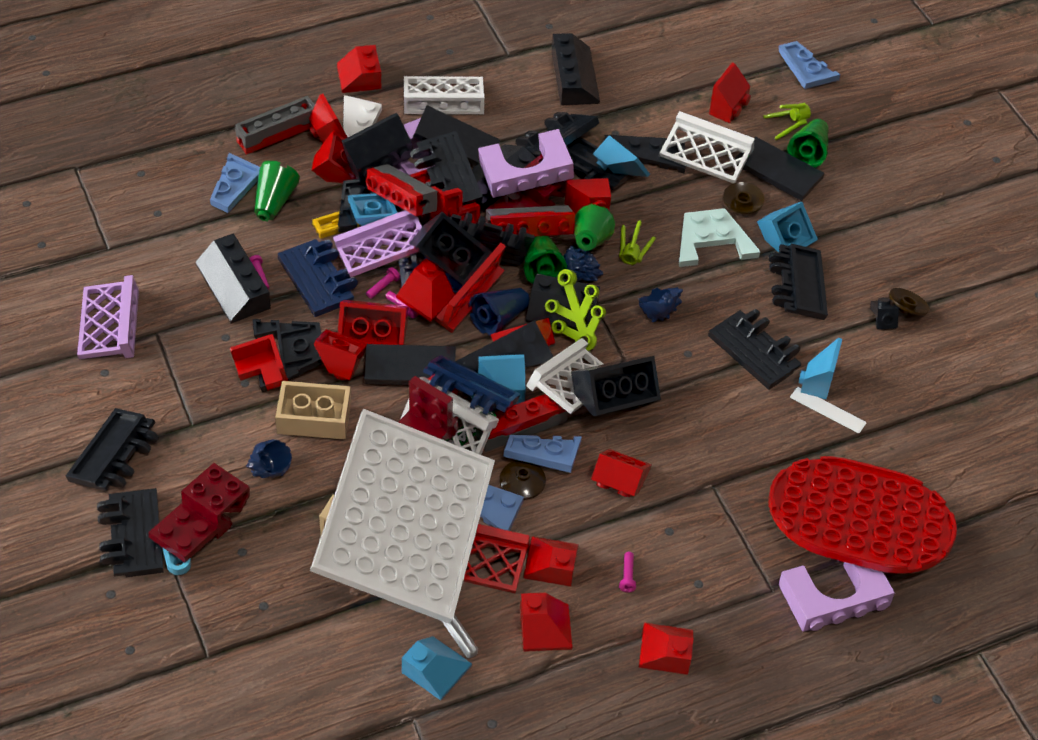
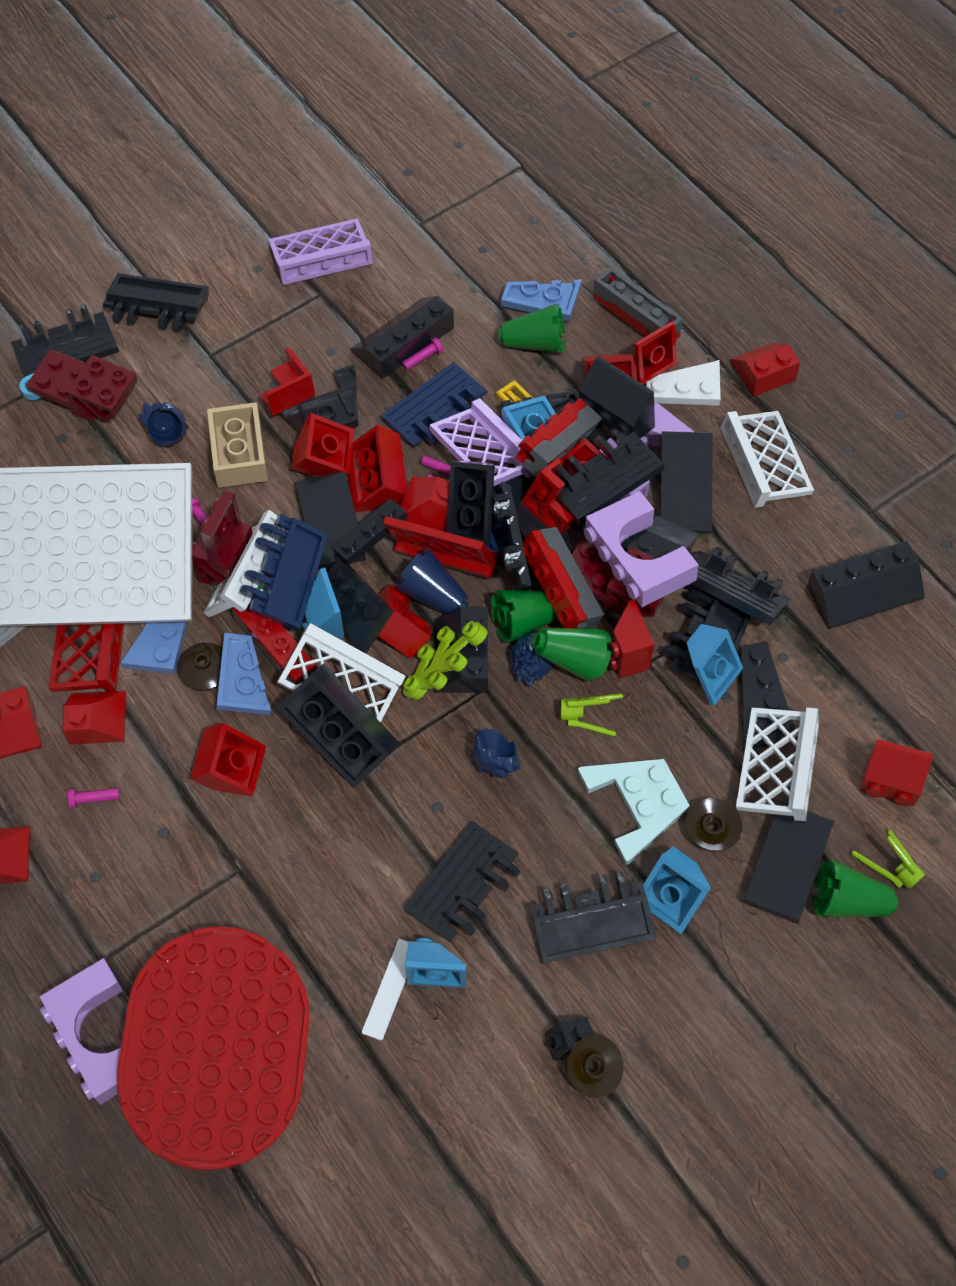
camera: 80 degrees right, 10 degrees up
(440, 332) = (367, 532): none -> black plate

